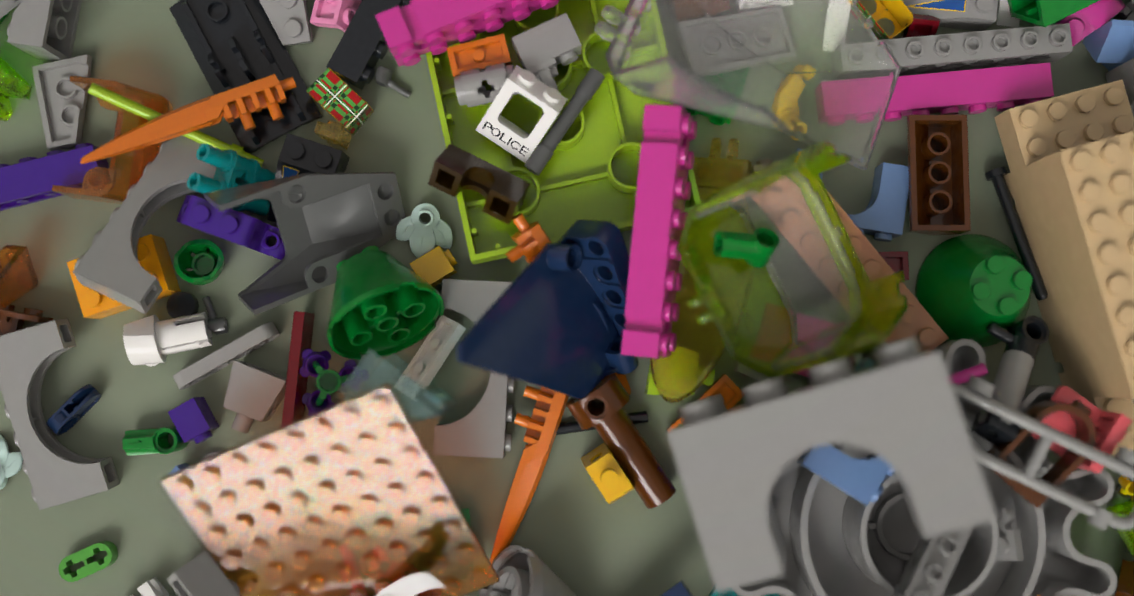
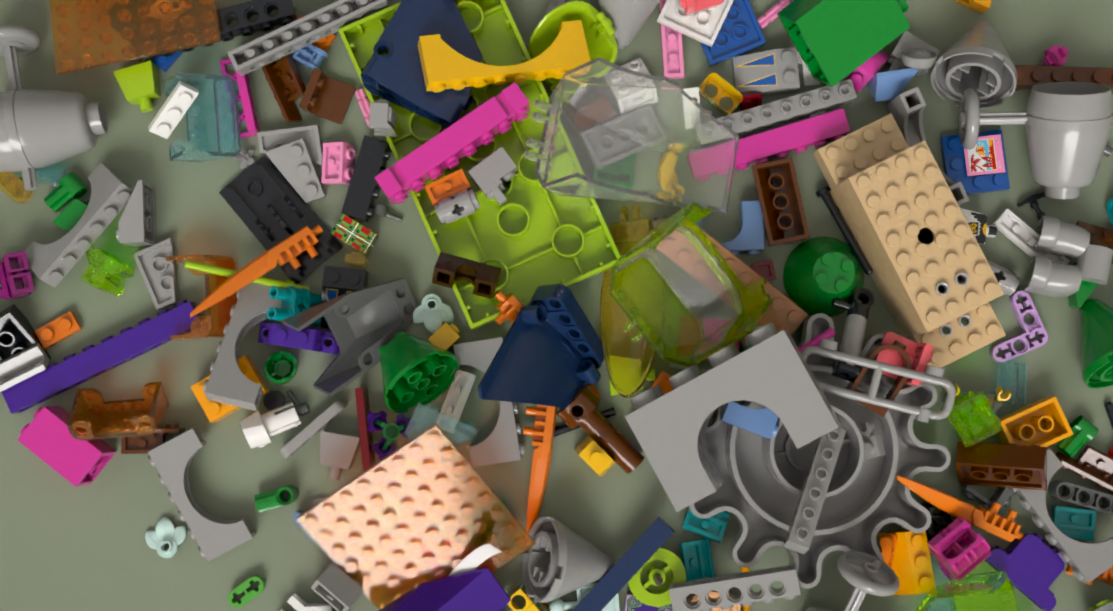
camera: 15 degrees left, 0 degrees up
(73, 409) = (214, 488): dark blue piece -> none
(194, 420) = (300, 478): dark purple brick -> none
(508, 134) = (481, 237): white window -> none
(546, 148) = (507, 240): dark grey piece -> none
(658, 231) = (593, 284): dark pink brick -> none
(753, 248) = (659, 281): green piece -> none

